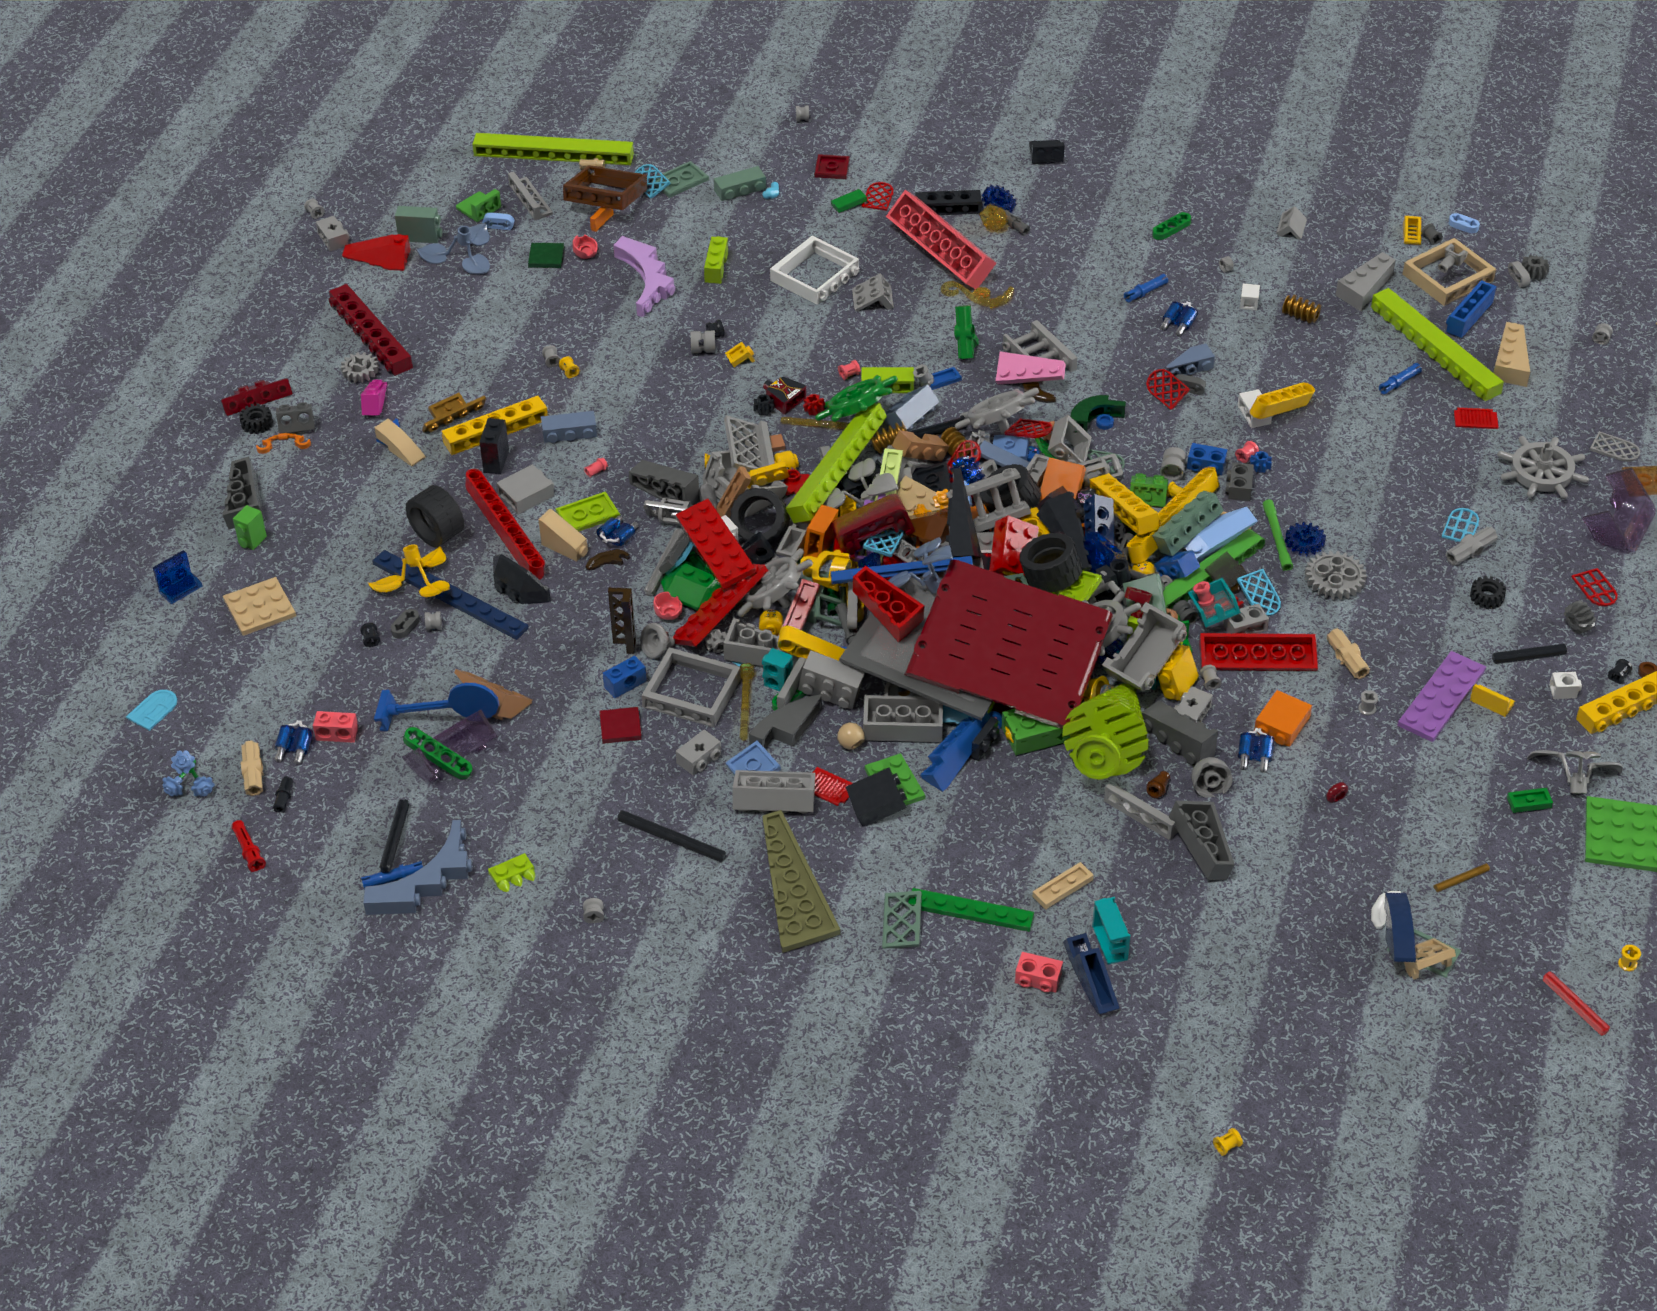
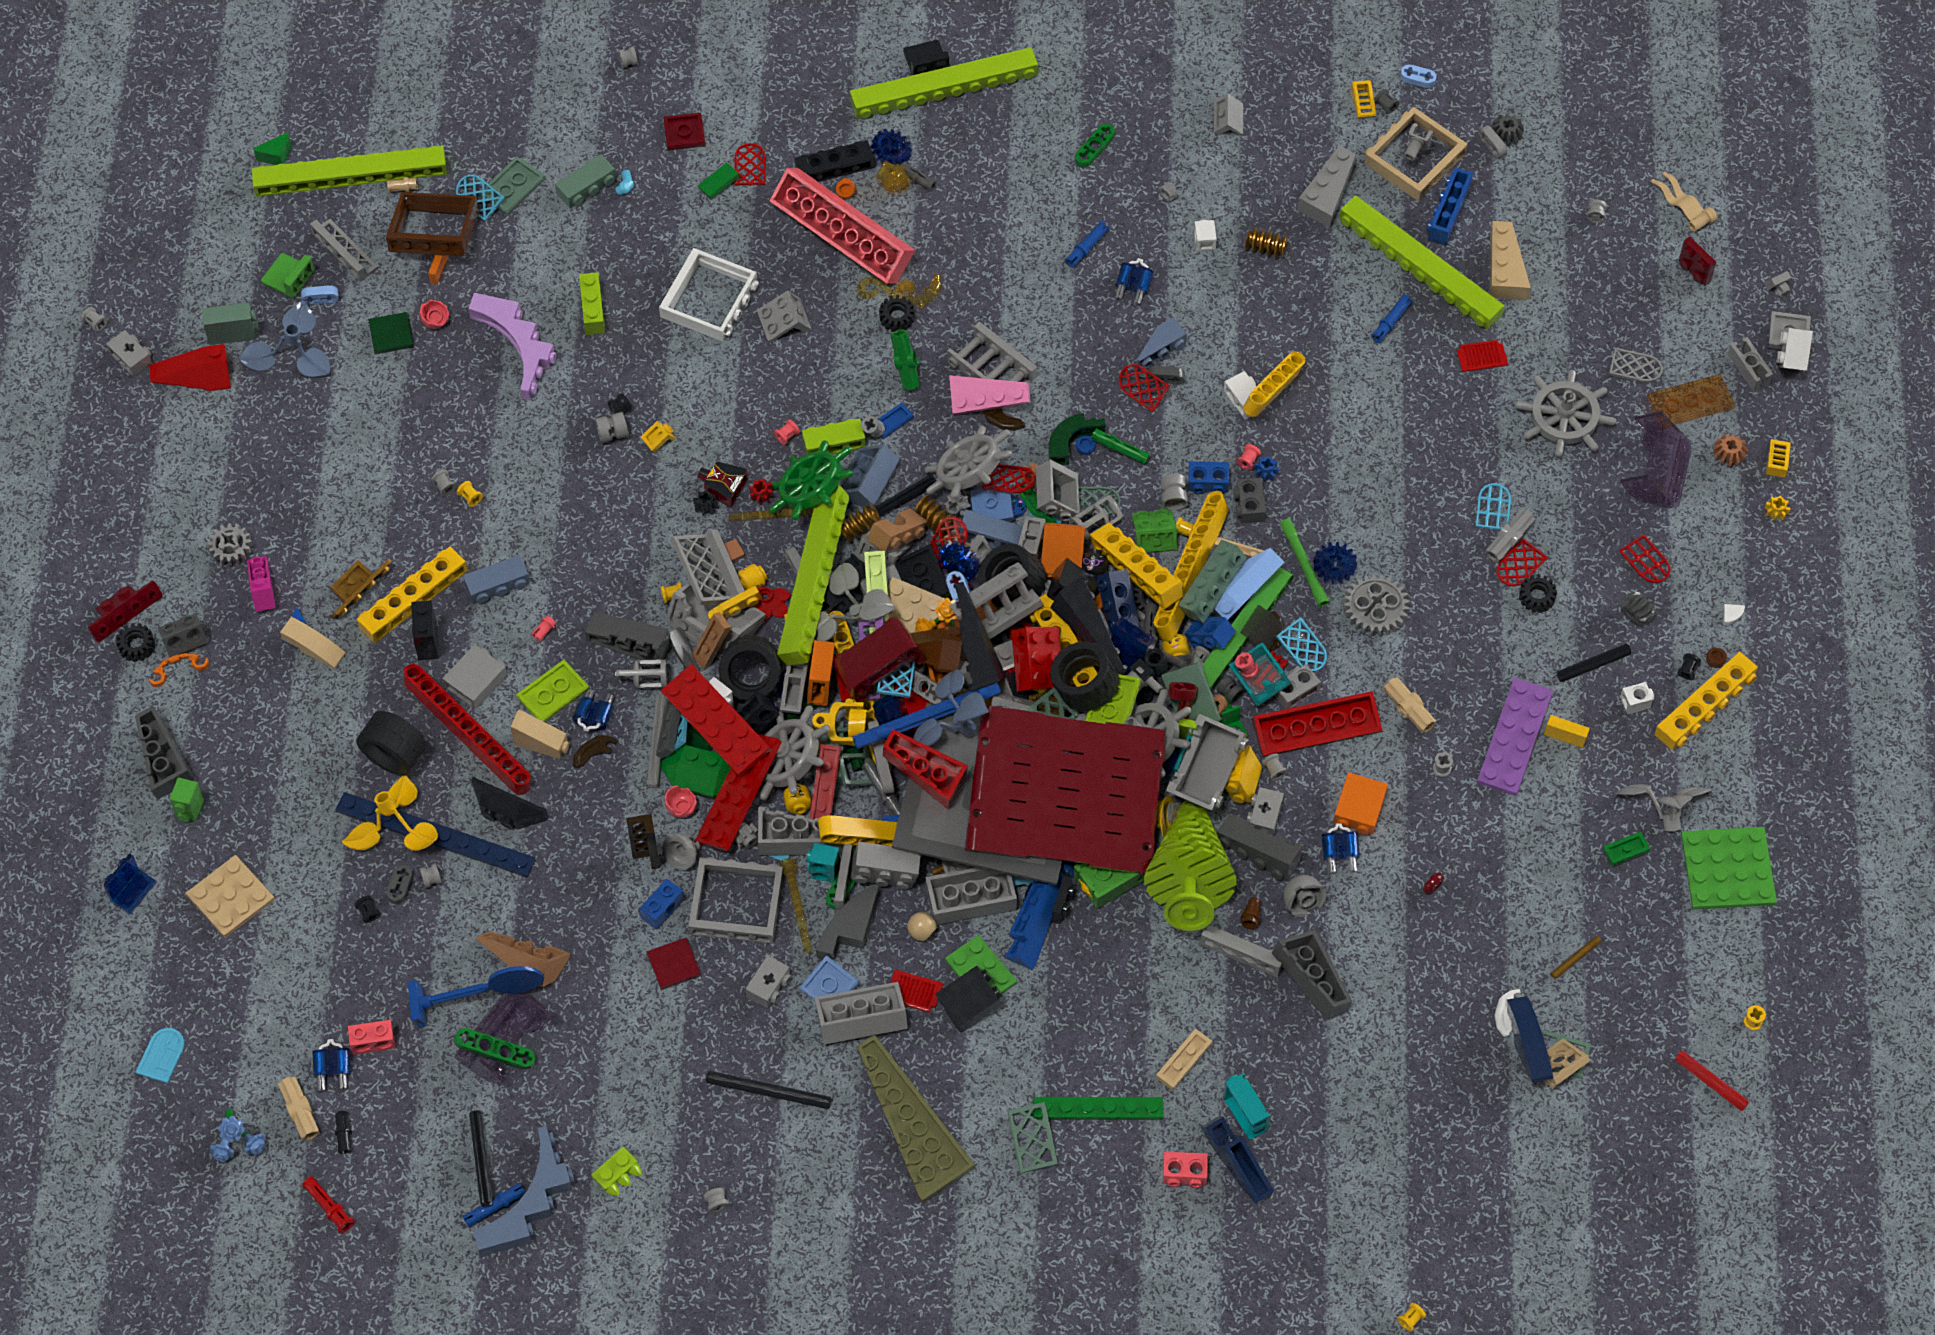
camera: 15 degrees left, 15 degrees up
(370, 330) = (176, 444): dark red brick -> none
(499, 125) = (274, 150): none -> green slope
(953, 219) = (845, 188): none -> orange tile
(975, 302) = (892, 304): none -> black tyre
(1056, 166) = (944, 83): none -> lime brick
(1129, 422) = (1120, 446): none -> green pin
(1499, 569) = (1514, 550): none -> red window

